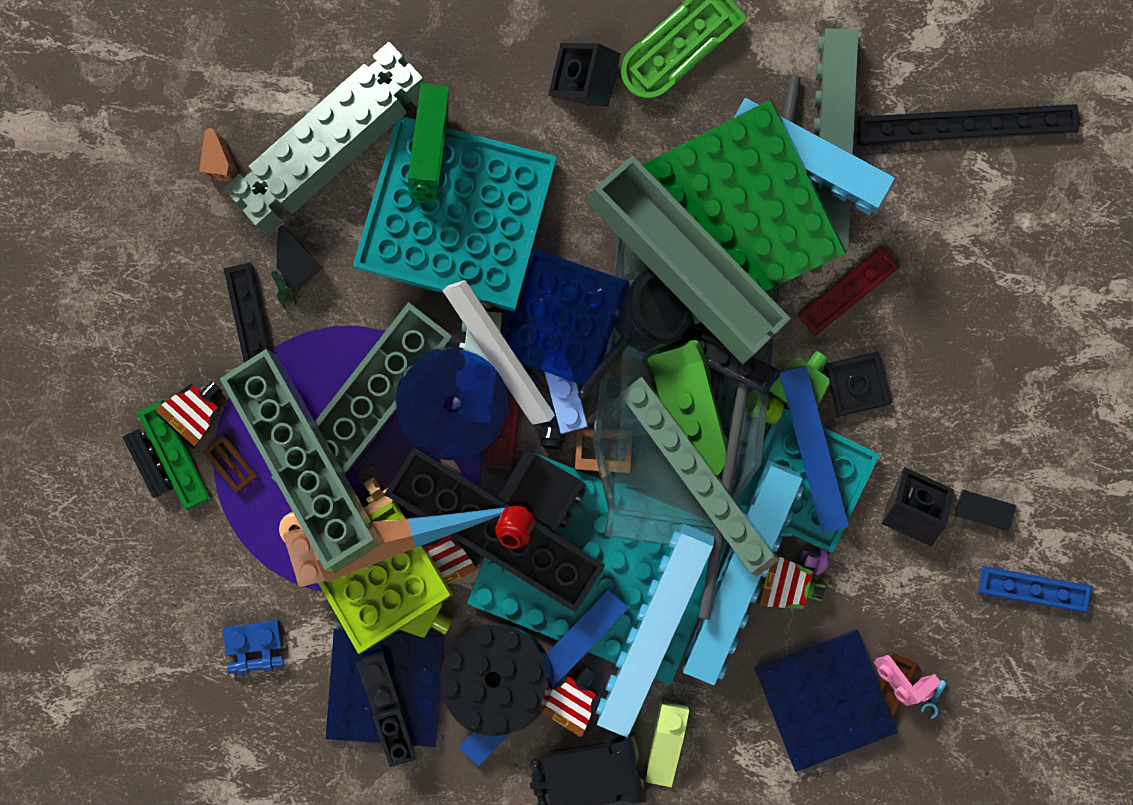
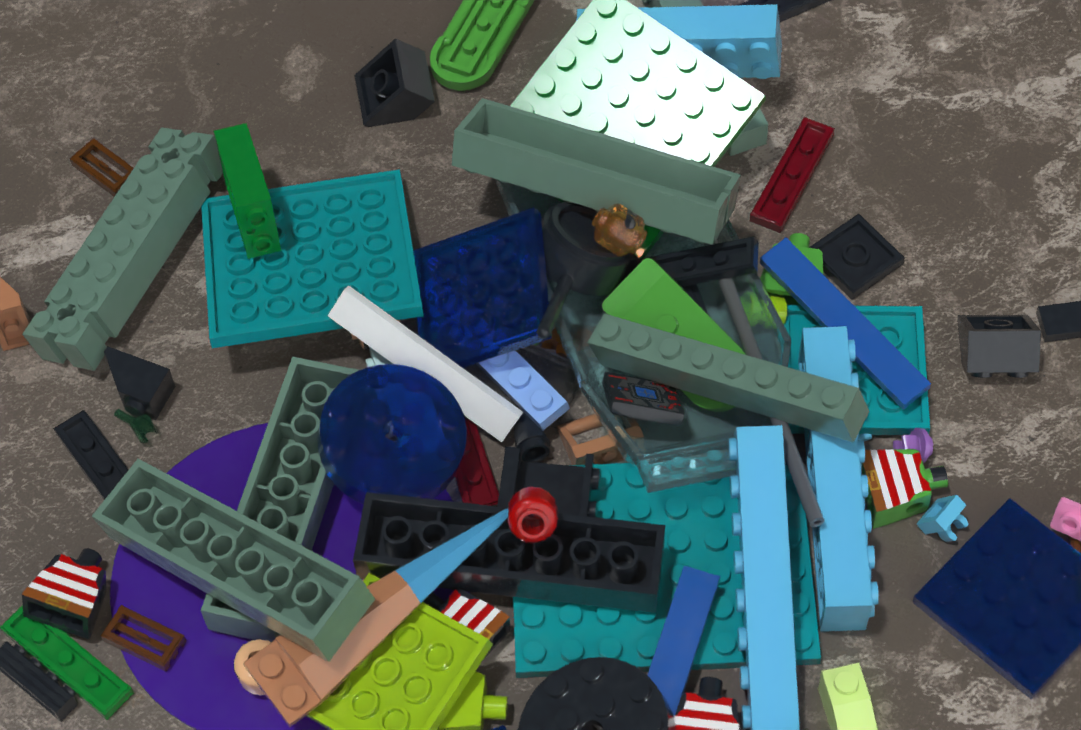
camera: 25 degrees left, 30 degrees down
(347, 67) = (94, 175): none -> reddish brown tile
(636, 455) = (642, 399): none -> black tile
(680, 321) = (619, 229): none -> clear orange head
(805, 621) = (942, 515): none -> medium azure tile

